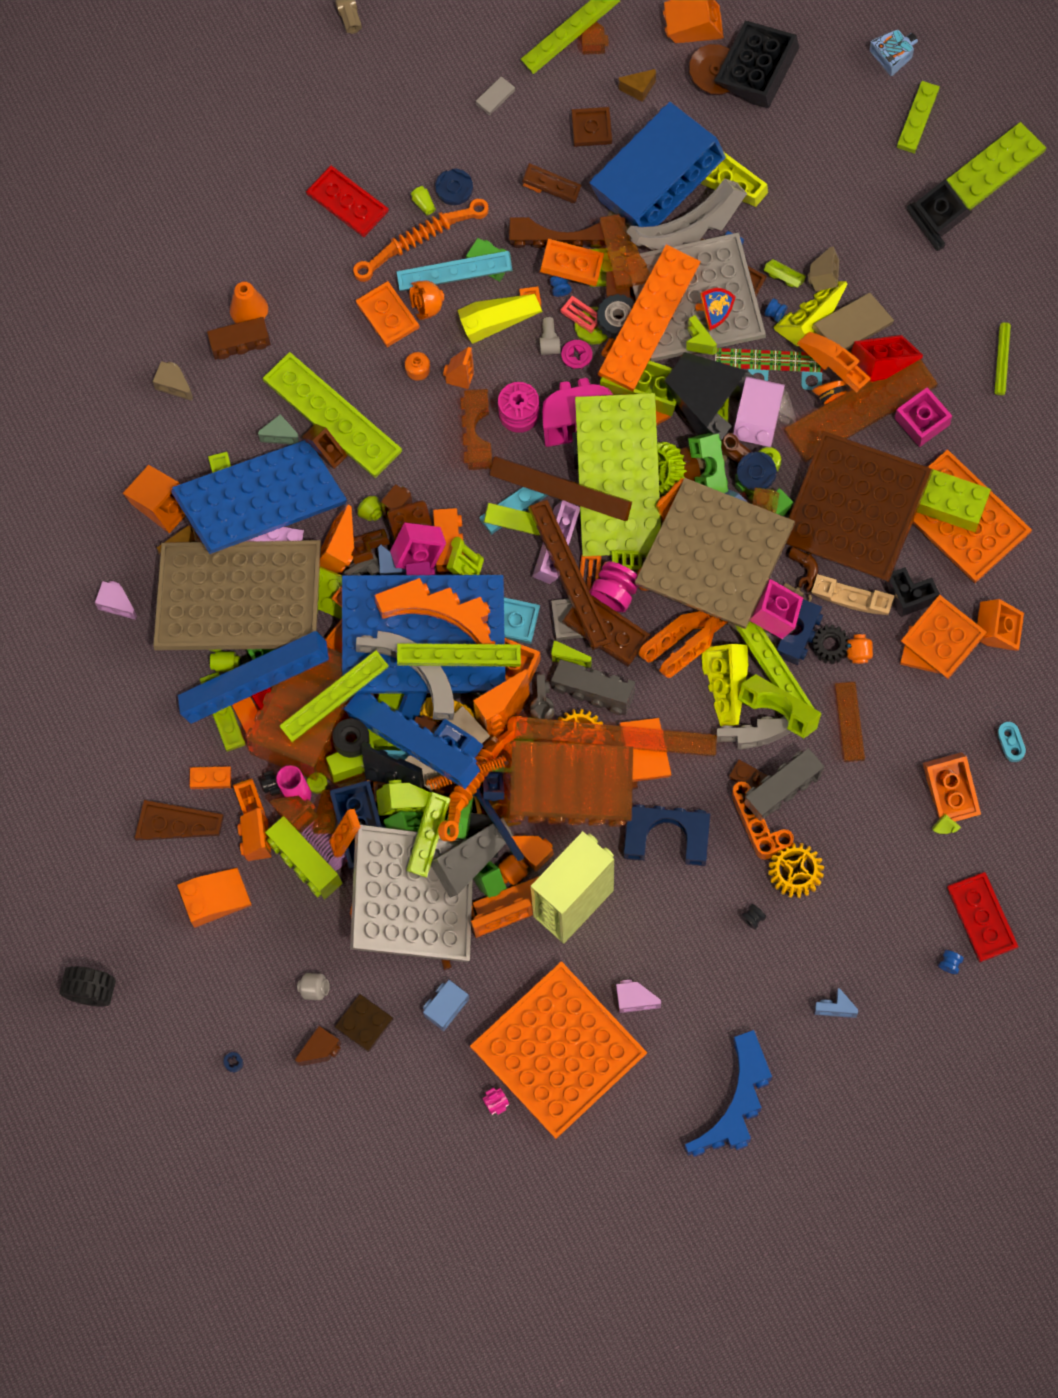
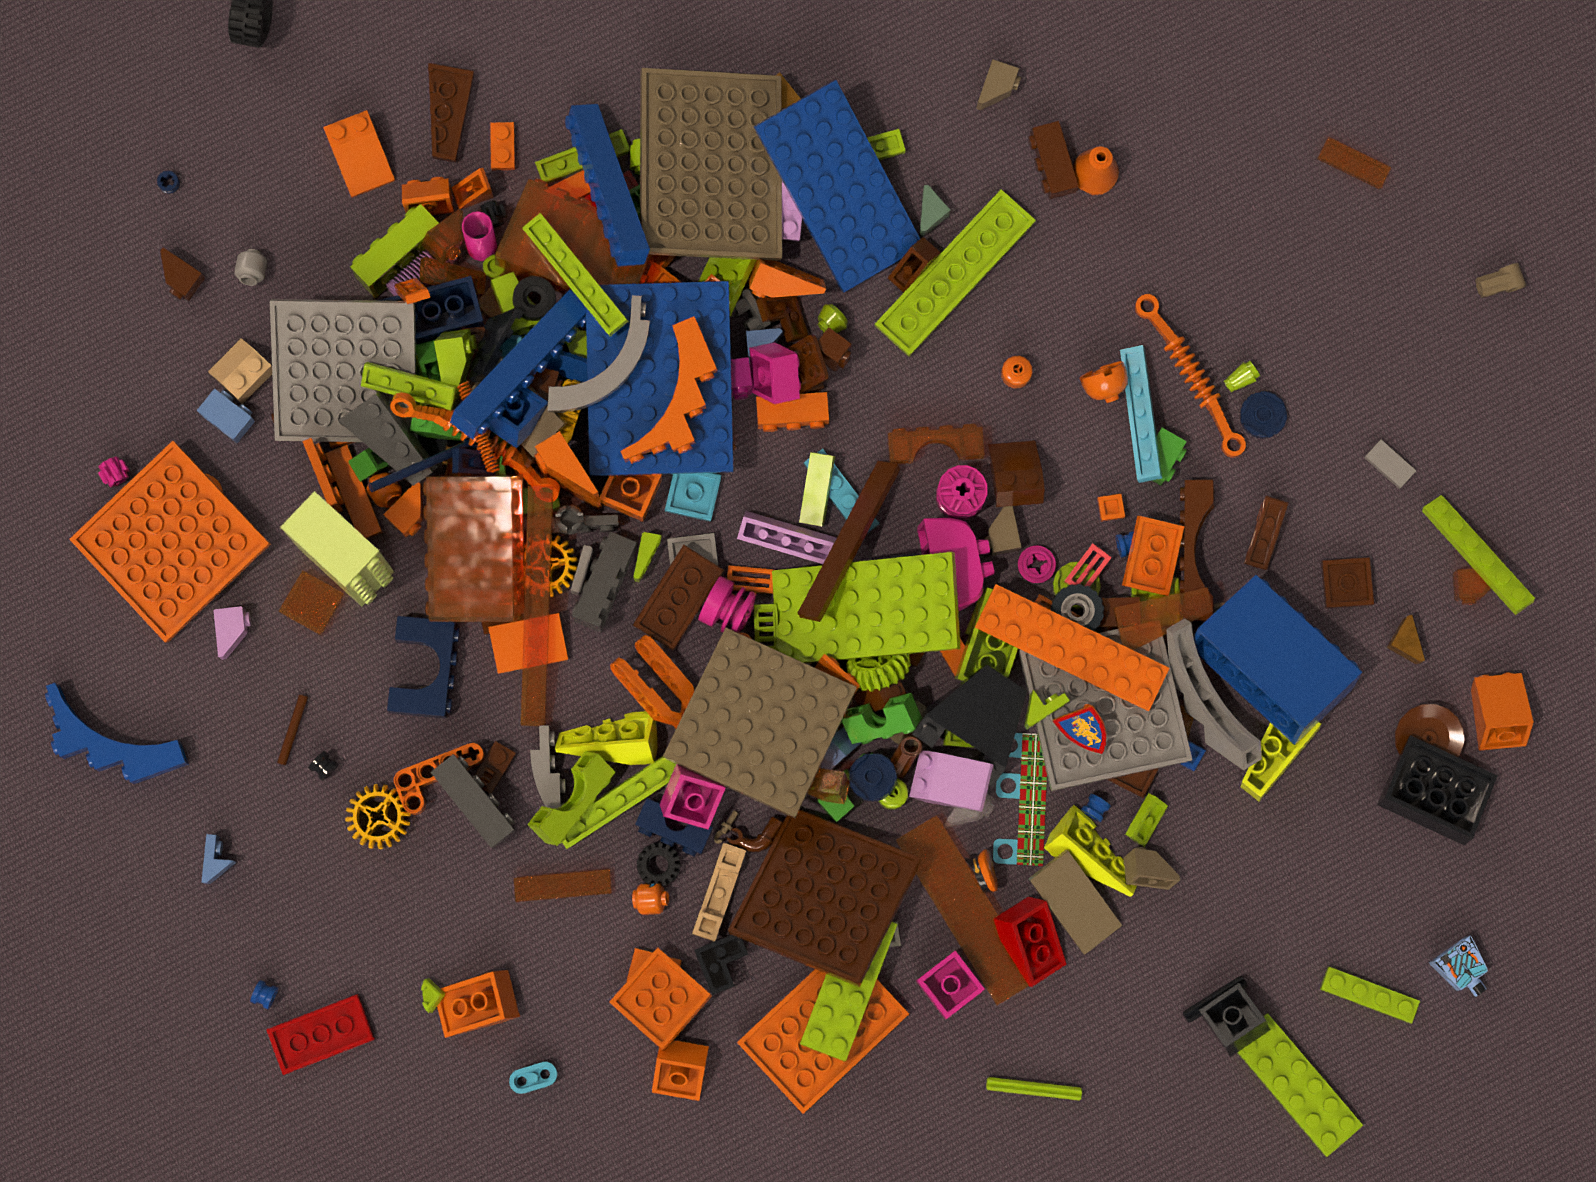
camera: 80 degrees right, 10 degrees up
(114, 600) = (718, 29): lavender slope -> none
(154, 498) = (851, 64): orange slope -> none
(248, 118) = (1354, 163): none -> clear orange tile
(347, 201) = (1241, 285): red tile -> none
(364, 1023) = (210, 325): dark brown plate -> none
(387, 314) = (1088, 335): orange plate -> none
(405, 993) = (241, 371): none -> tan slope
(458, 655) = (617, 414): lime plate -> none
(460, 369) = (1009, 422): orange slope -> none
(461, 565) = (751, 428): lime plate -> none
(491, 316) = (1085, 459): neon yellow wedge -> none
(503, 364) = (1016, 473): none -> reddish brown slope
(548, 376) = (1003, 533): none -> dark tan slope
(550, 341) = (1051, 531): light grey pin -> none
(569, 574) = (739, 551): reddish brown tile -> none
(575, 703) = (582, 570): none -> light grey tile
(611, 929) = (311, 603): none -> clear orange plate
(721, 945) = (292, 730): none -> reddish brown bar
(832, 355) = (1021, 874): orange slope -> none

